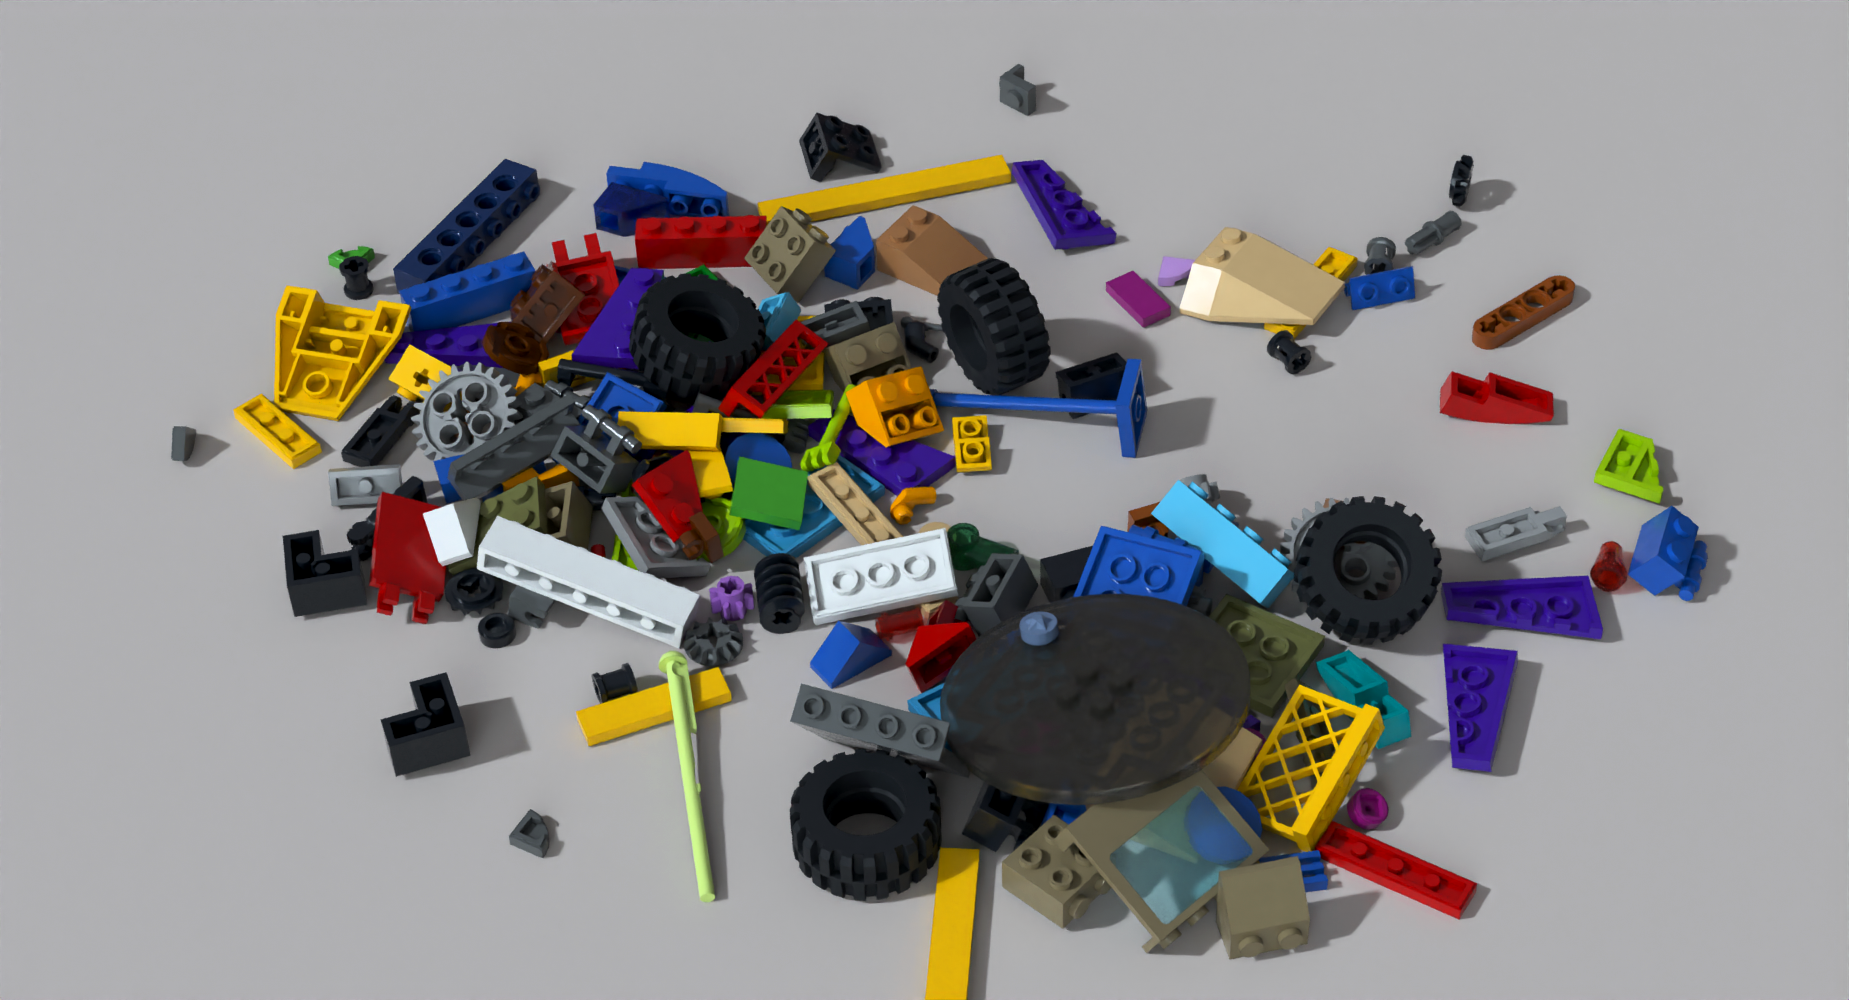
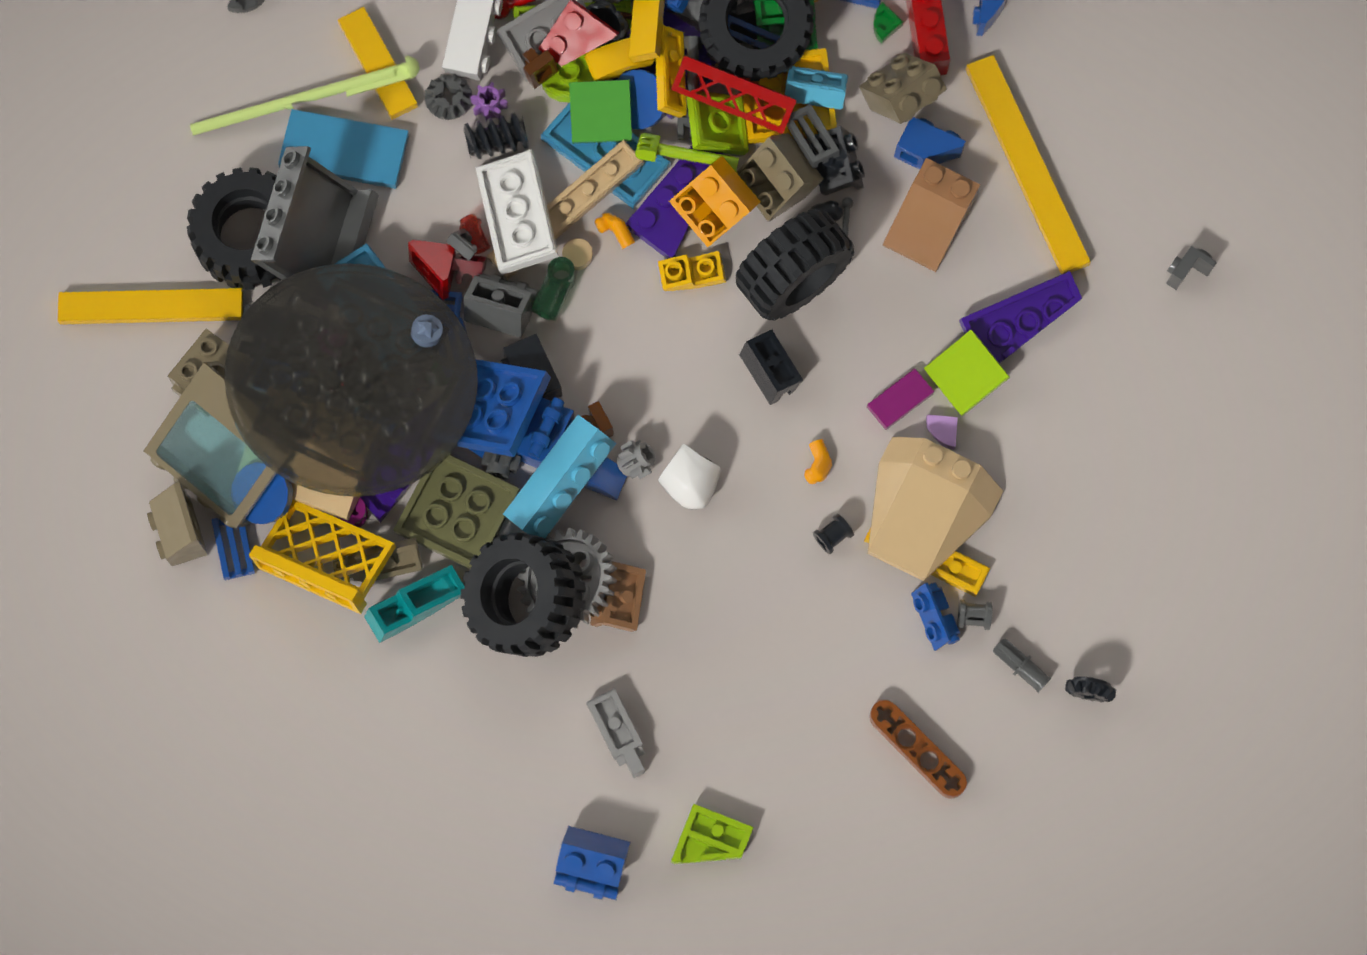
camera: 80 degrees right, 30 degrees up
(614, 683) = (392, 29): black bush -> none
(758, 749) = (349, 147): none -> dark azure tile
(832, 139) = (1082, 117): black bracket -> none
(847, 653) = (441, 201): blue slope -> none
(917, 617) = (462, 243): none -> dark grey tile
(1116, 243) = (966, 372): none -> lime tile
(1129, 407) = (727, 393): blue tile -> none
(1205, 358) = (821, 464): none -> light orange arm
(1229, 450) = (690, 478): none -> white piece
(1367, 808) = (297, 607): magenta tile -> none
(1396, 870) = (242, 631): red tile -> none
(1477, 701) = (426, 697): dark purple wing -> none
(1495, 400) = (786, 720): red slope -> none
(1531, 604) = (531, 747): dark purple wing -> none
(1609, 567) = (581, 812): clear red cone -> none

